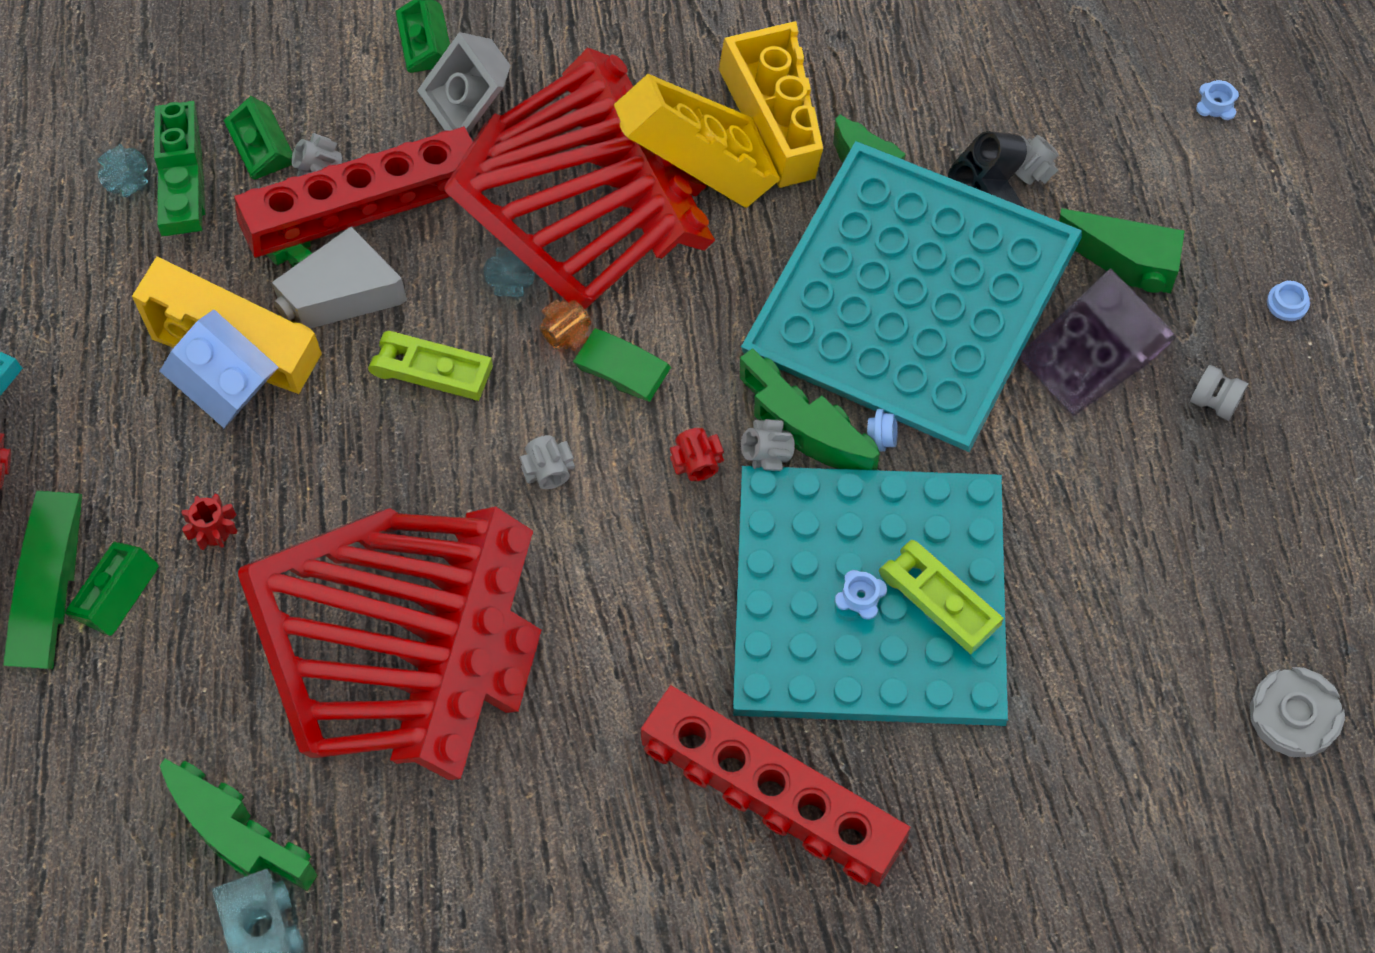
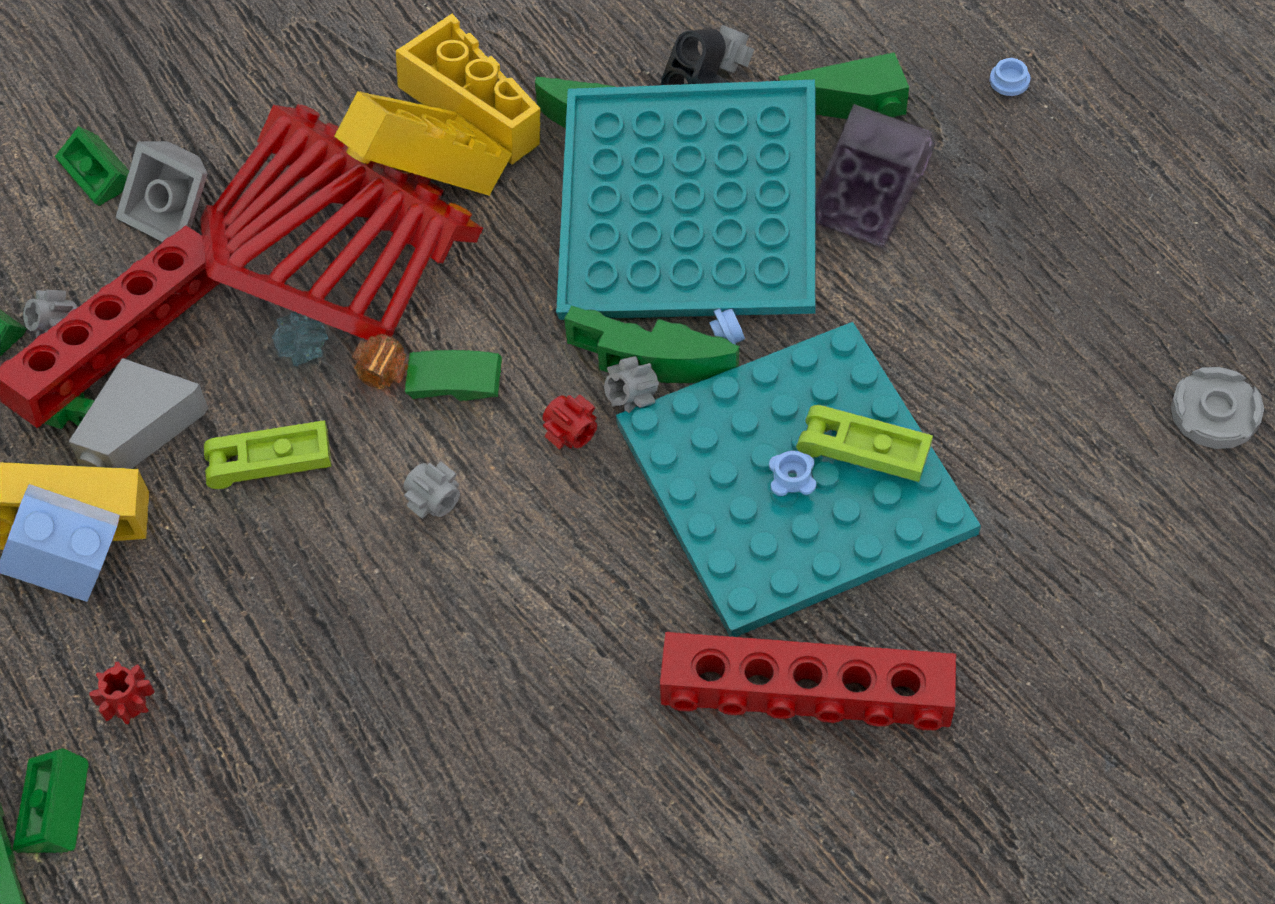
camera: 25 degrees left, 5 degrees down
(472, 645) = (453, 686): red plate -> none
(1226, 399) = (1008, 174): light grey wheel -> none

